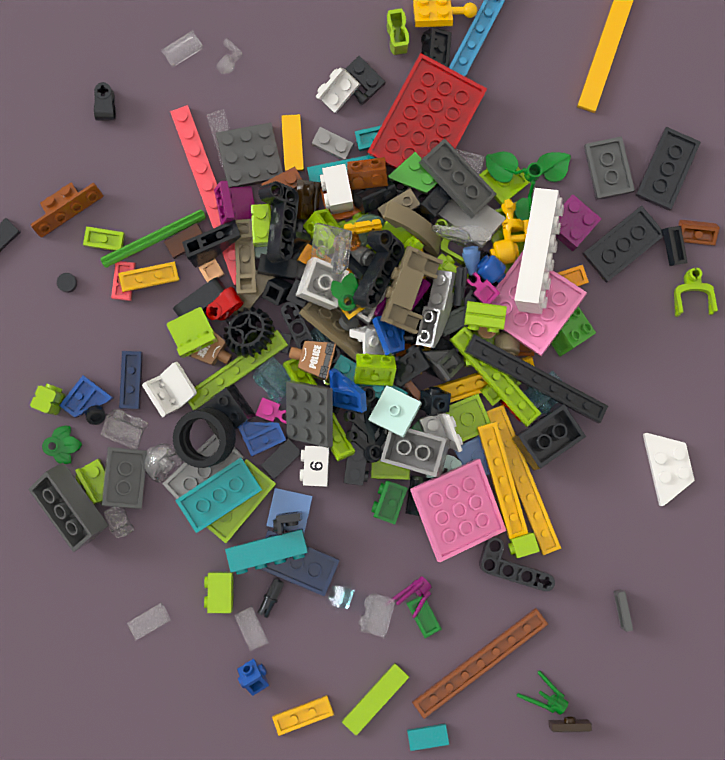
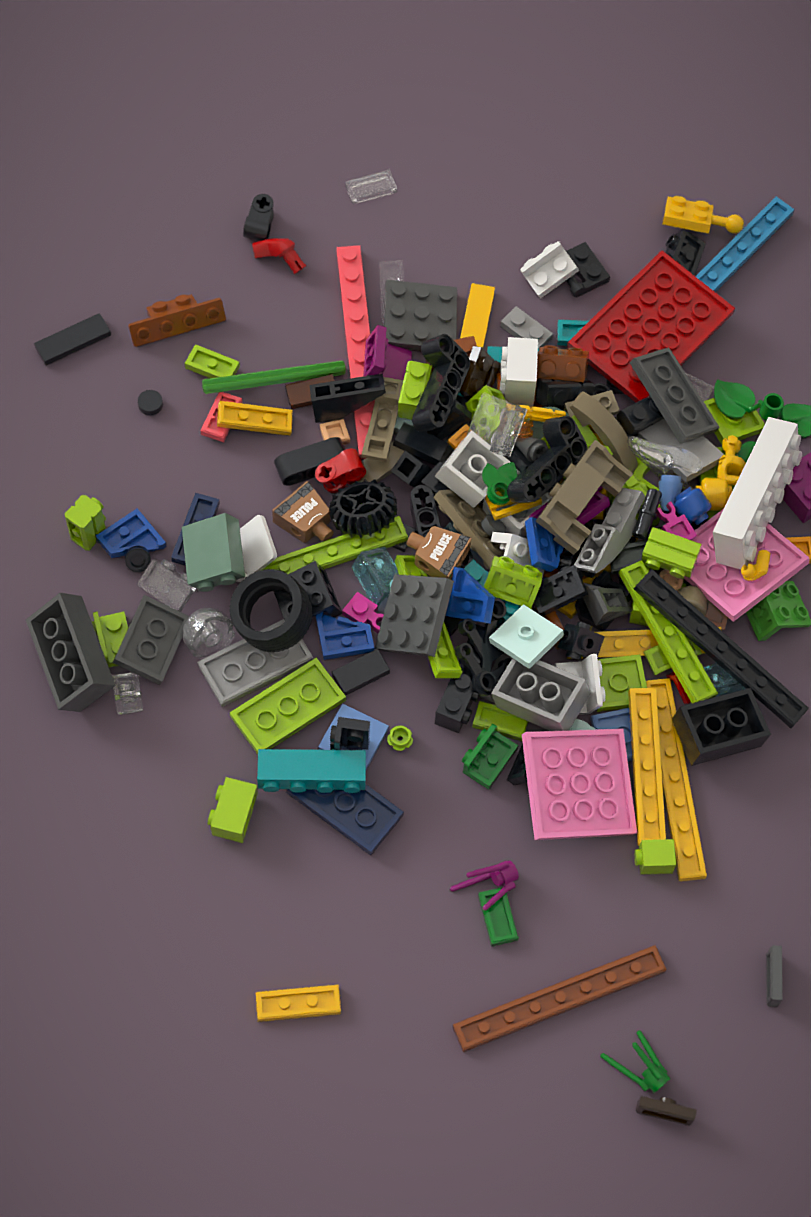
camera: 15 degrees right, 20 degrees down
(64, 444) = (86, 582): green plate -> none
(127, 125) = (279, 248): none -> red arm
(148, 621) = (127, 827): clear tile -> none
(149, 403) = (213, 552): none -> sand green brick
(191, 332) = (292, 487): lime bracket -> none
(218, 495) = (268, 687): teal plate -> none
(226, 64) = (421, 211): clear plate -> none
(251, 628) = (260, 872): clear tile -> none
(253, 677) = (246, 927): blue brick -> none
(270, 598) = (298, 837): black axle -> none
(315, 466) = (404, 684): white brick -> none
(317, 504) = (400, 731): none -> lime plate
(342, 597) = (394, 860): clear light blue tile -> none
(375, 699) = (403, 1007): lime tile -> none
(377, 614) = (434, 895): clear bracket -> none
(397, 31) = (639, 225): lime brick -> none
(413, 175) = (621, 379): bright green wing -> none
(428, 737) = (463, 1077): teal tile -> none
(517, 569) = (641, 883): black beam -> none
(552, 312) = (759, 569): none -> yellow arm

